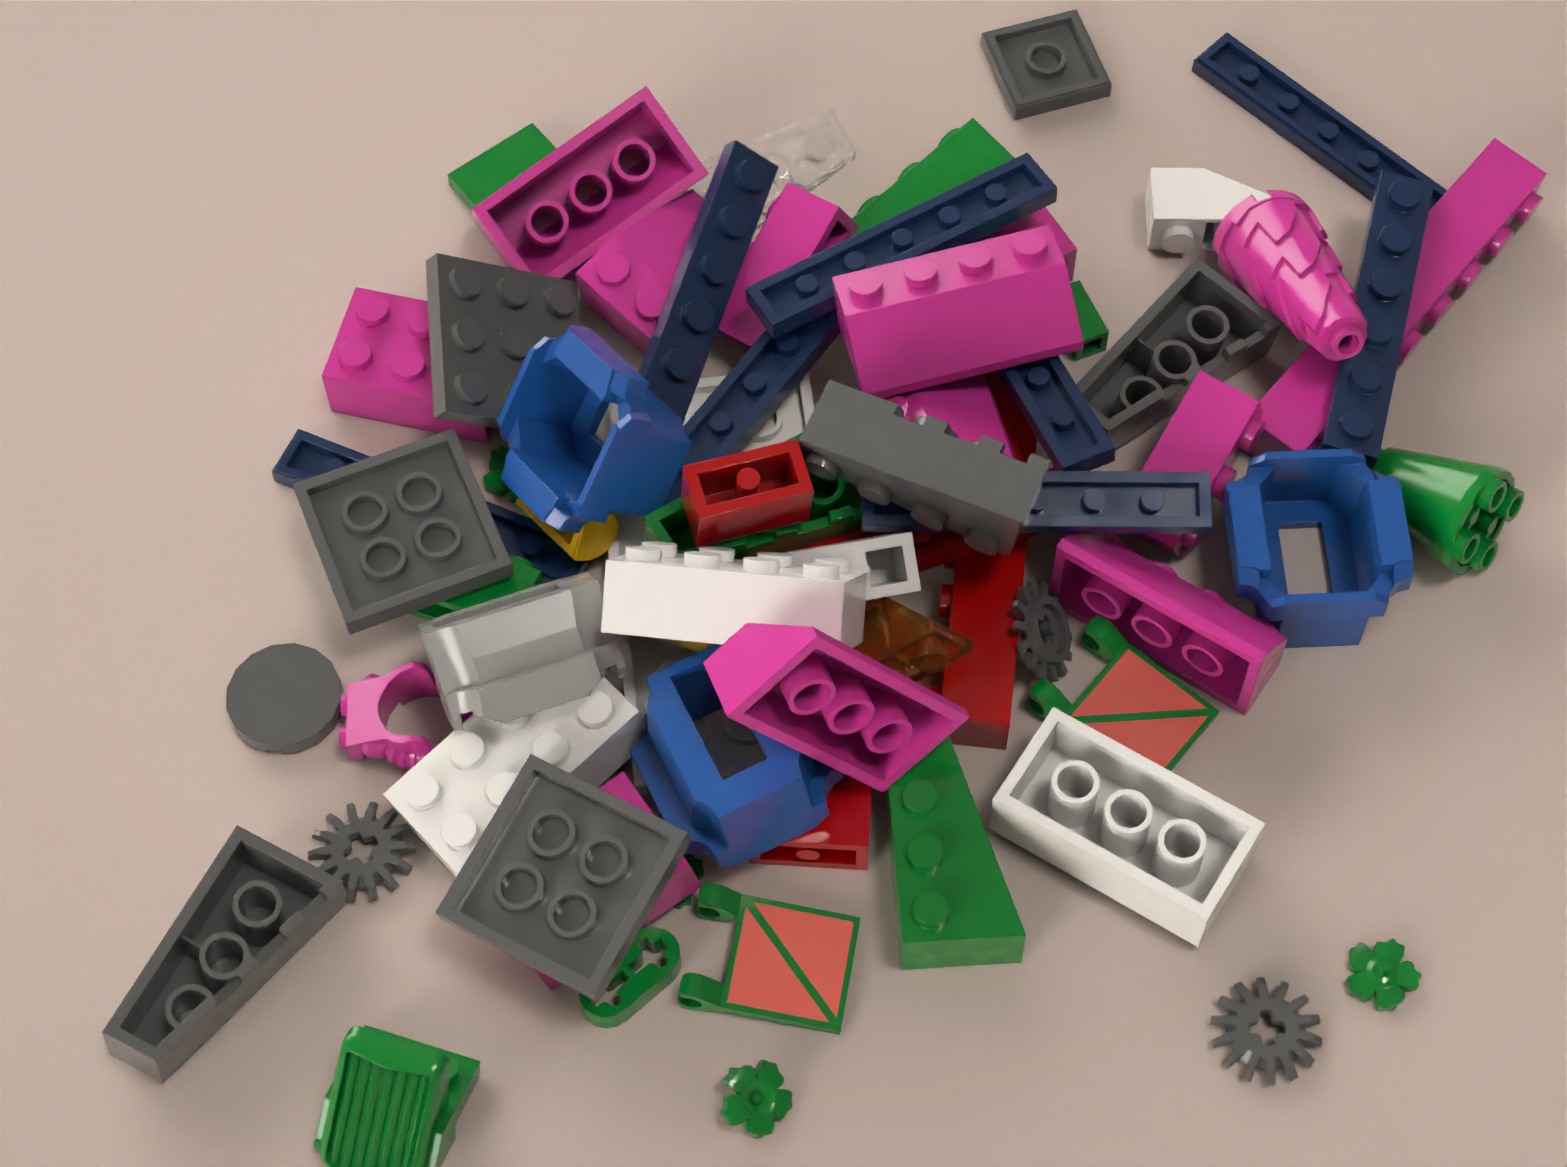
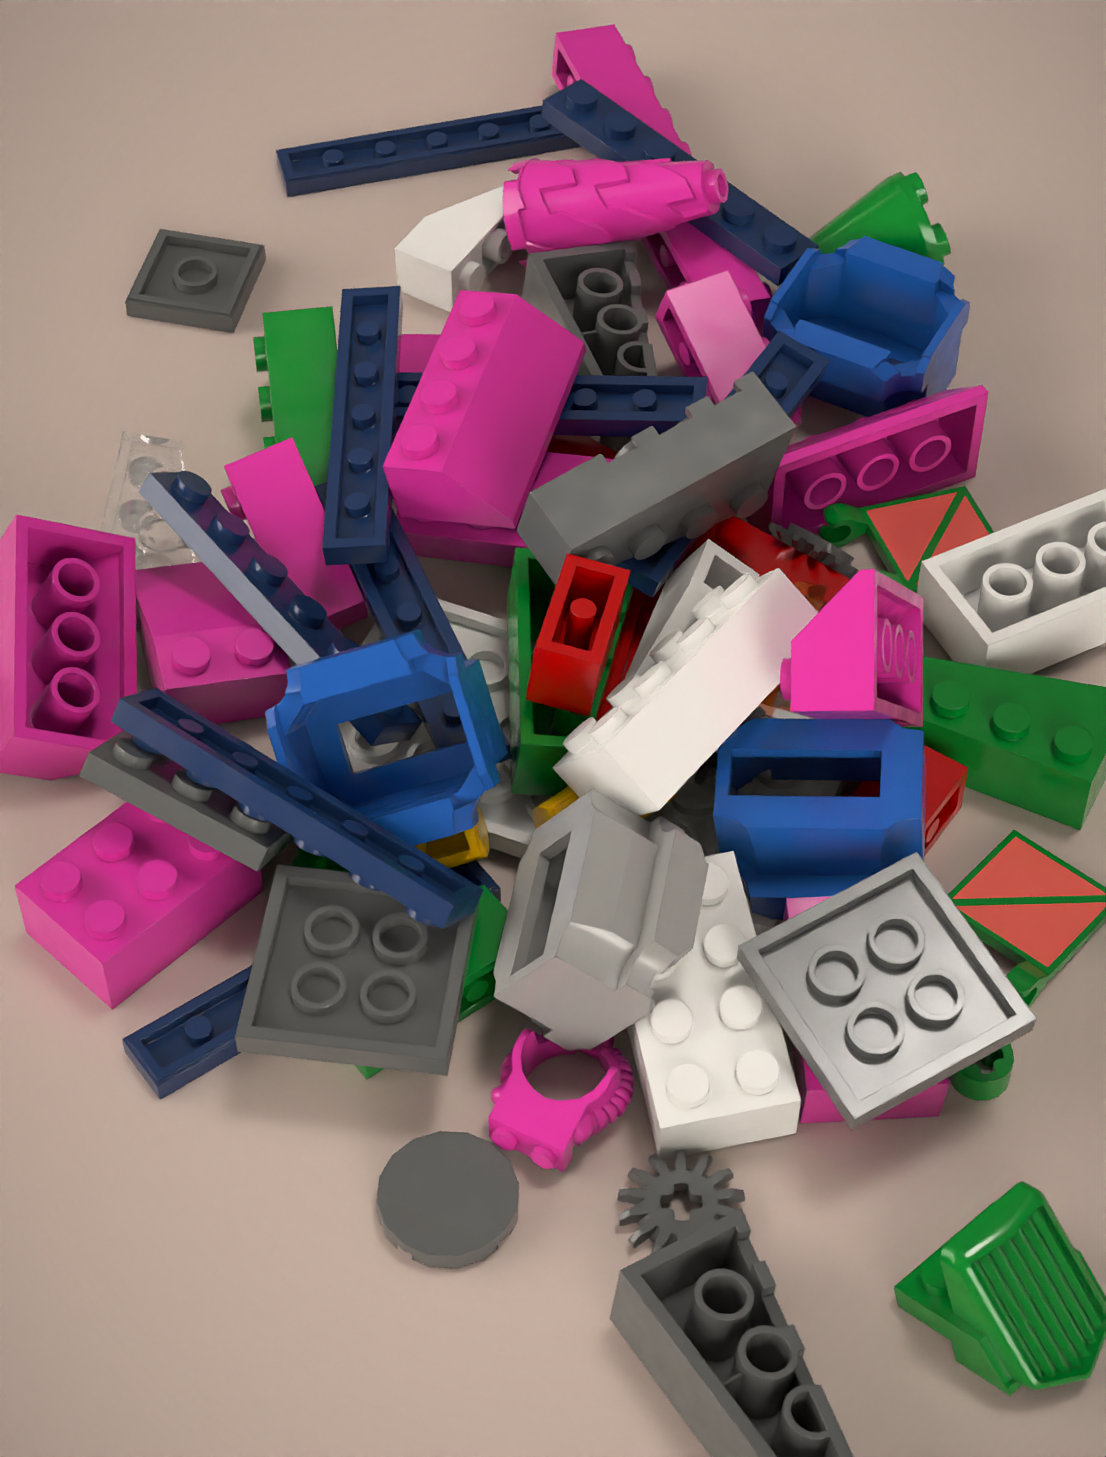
camera: 60 degrees left, 10 degrees down
(483, 408) = (311, 815): none -> dark blue plate

